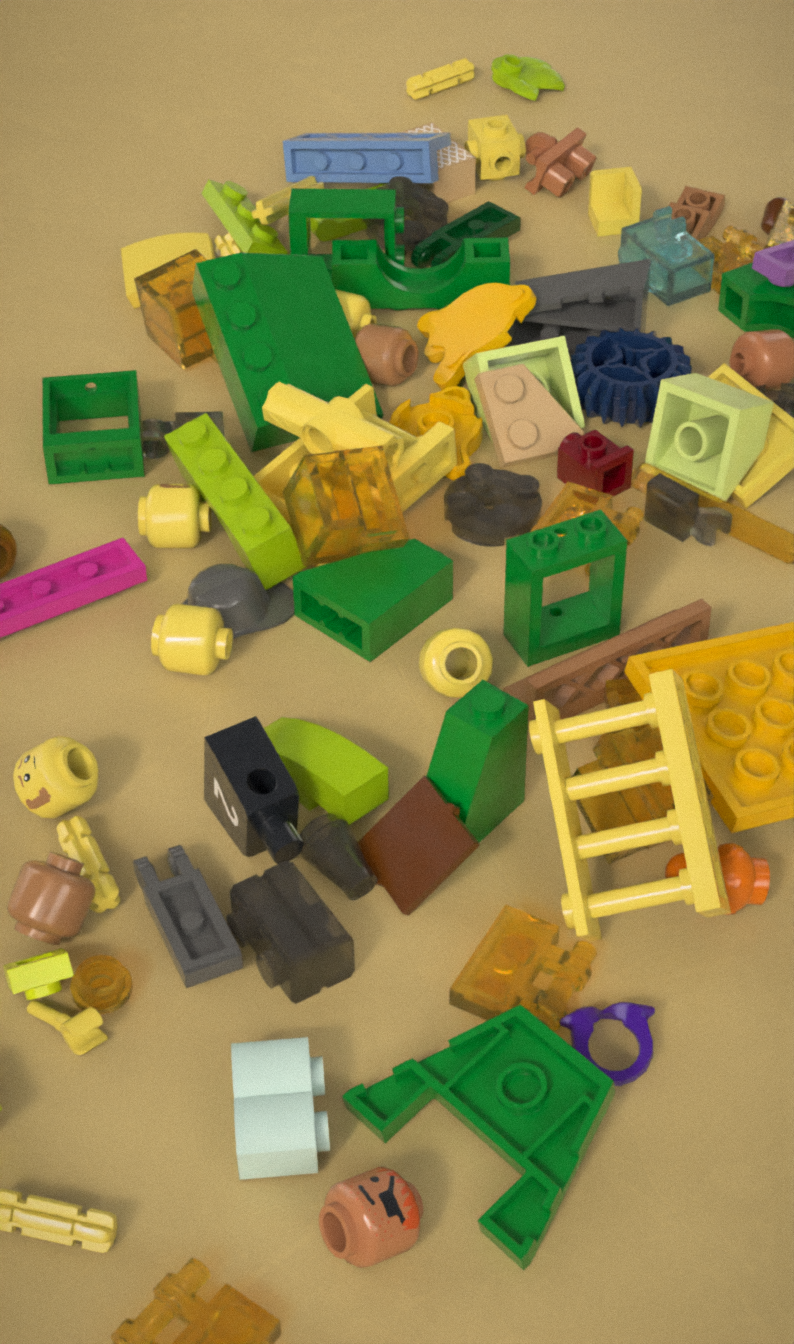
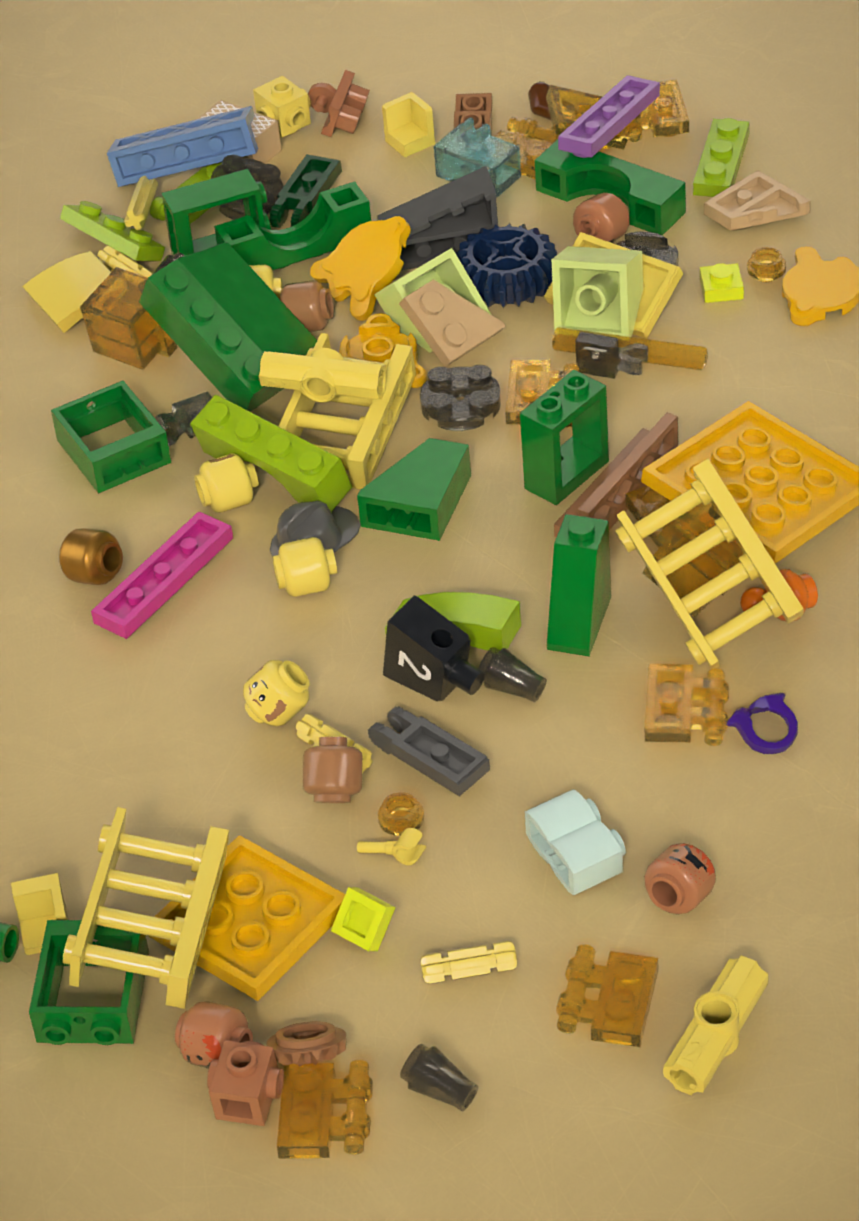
camera: 20 degrees left, 0 degrees up
(39, 974) = (354, 822): neon yellow plate -> none
(291, 932) = (513, 733): clear smoke brick -> none
(344, 505) = (373, 430): clear yellow plate -> none
(417, 845) = (566, 646): reddish brown piece -> none
(440, 79) = (190, 57): light yellow axle -> none
(455, 661) = (512, 516): light yellow head -> none
(521, 1096) = (726, 774): green wing -> none
(525, 75) = (261, 33): lime plate -> none
(590, 457) = (519, 339): dark red brick -> none

